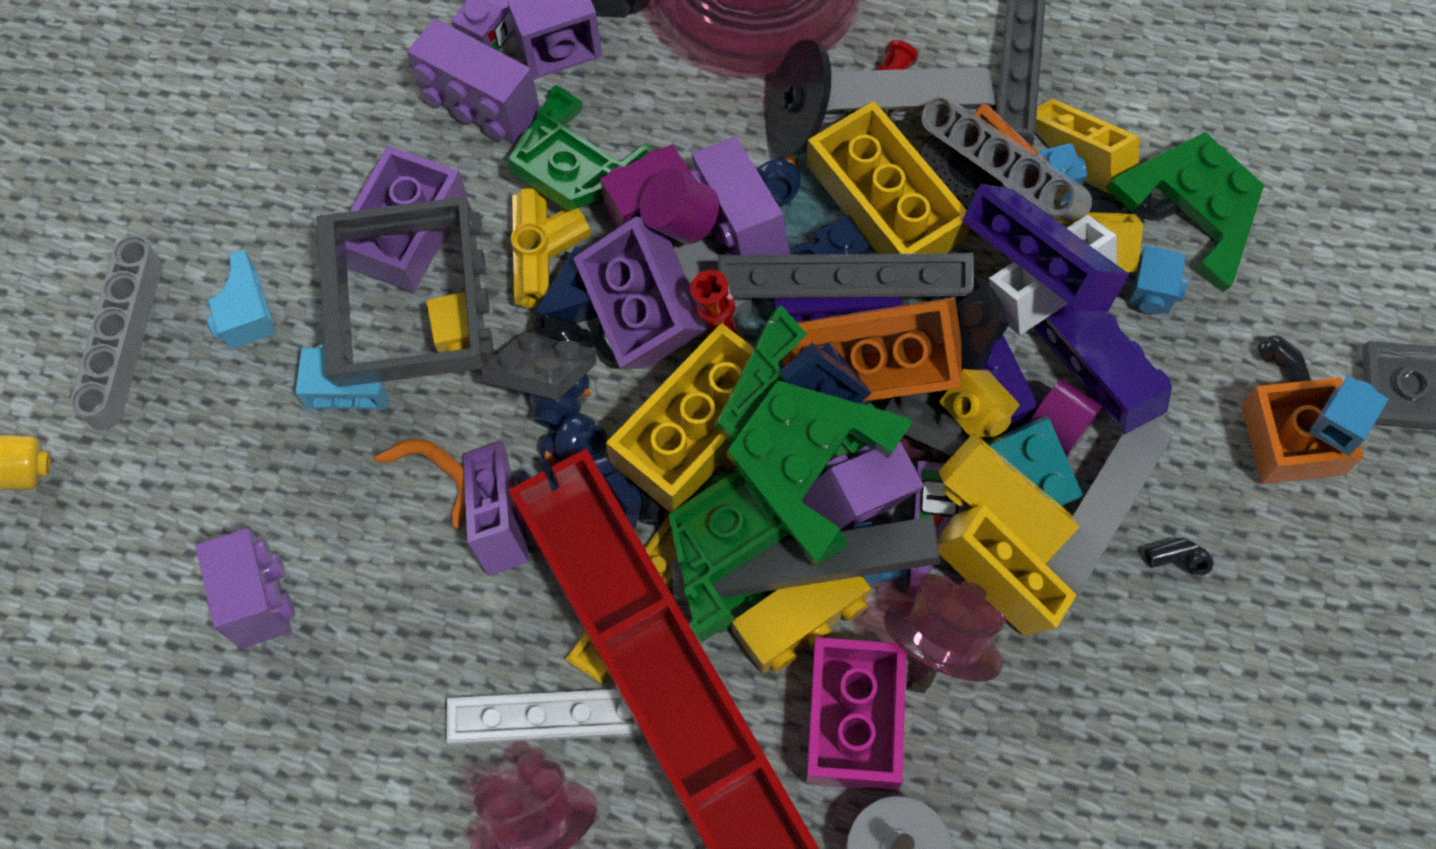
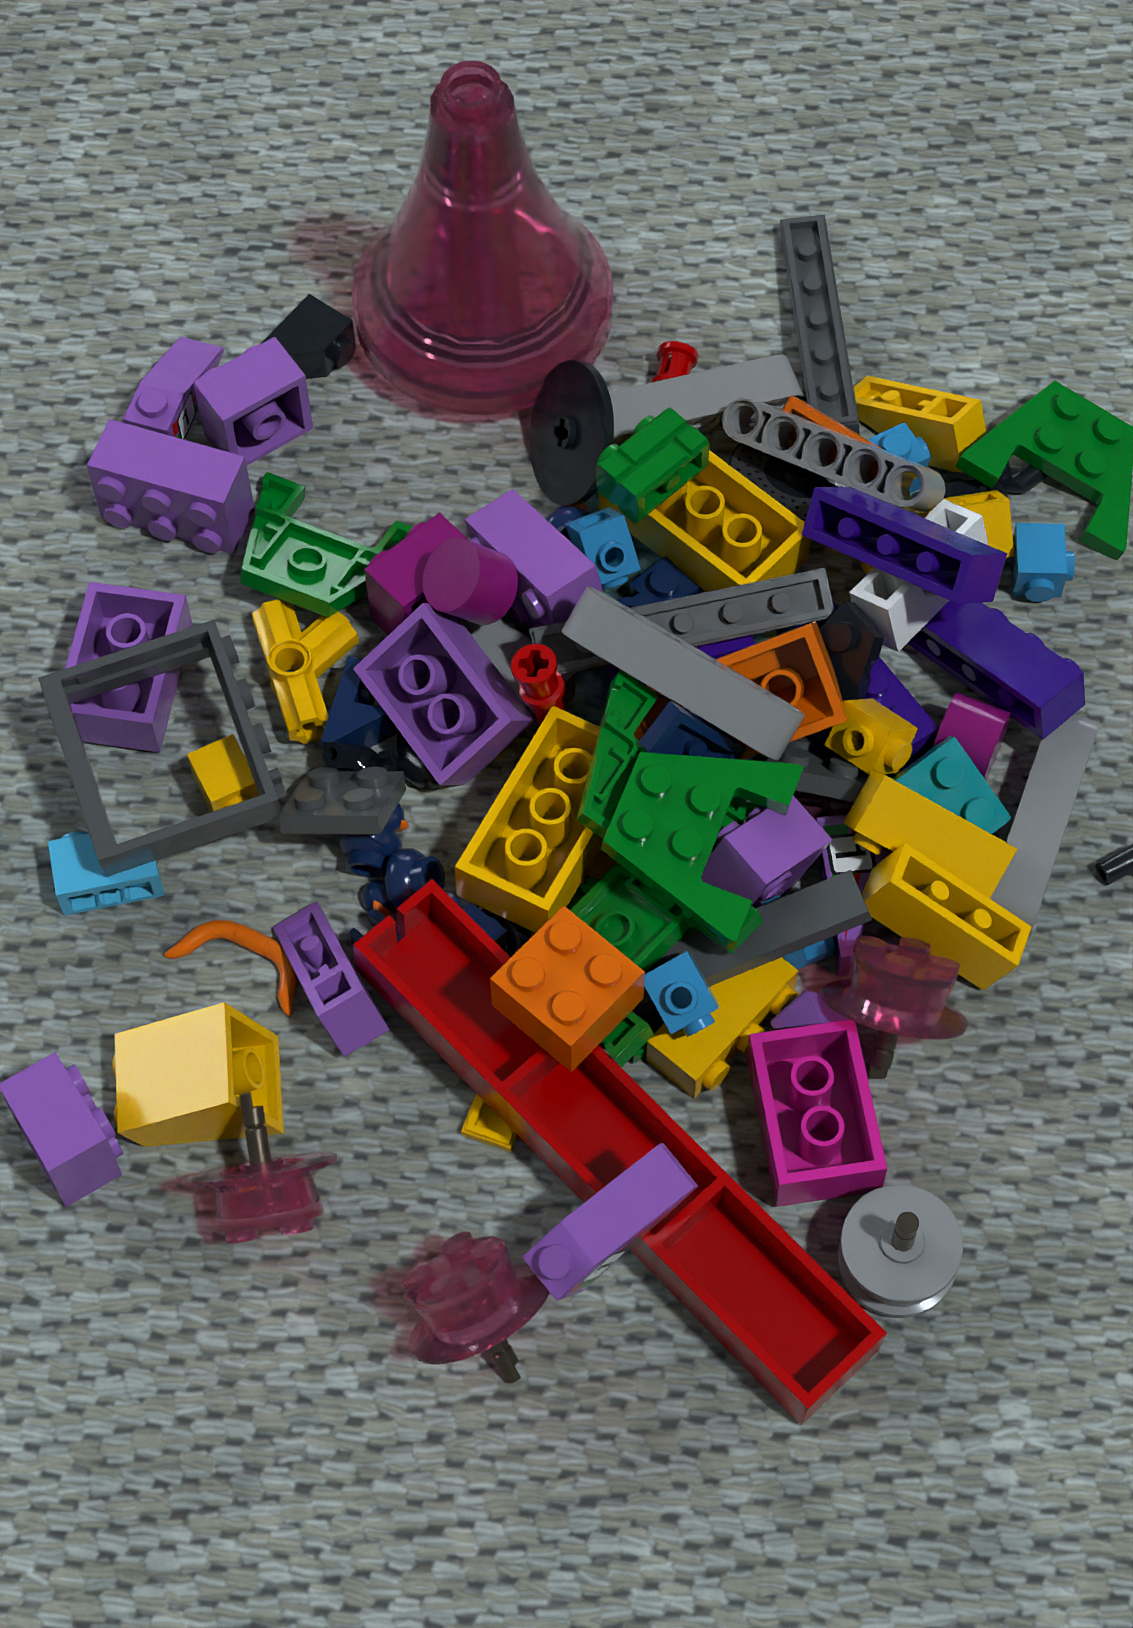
camera: 15 degrees left, 5 degrees down
(367, 569) = (186, 1075): none -> yellow slope
(389, 675) = (266, 1188): none -> clear pink piece
(538, 717) = (447, 1202): white tile -> none
(653, 781) = (609, 1223): none -> medium lavender slope
(668, 569) = (567, 988): none -> orange brick
(765, 592) = (682, 995): none -> dark azure brick
(800, 198) = (607, 544): none -> dark azure brick
(831, 320) = (683, 673): none -> light grey beam
(851, 137) = (651, 464): none -> green brick
(867, 626) = (805, 1011): none -> medium lavender slope

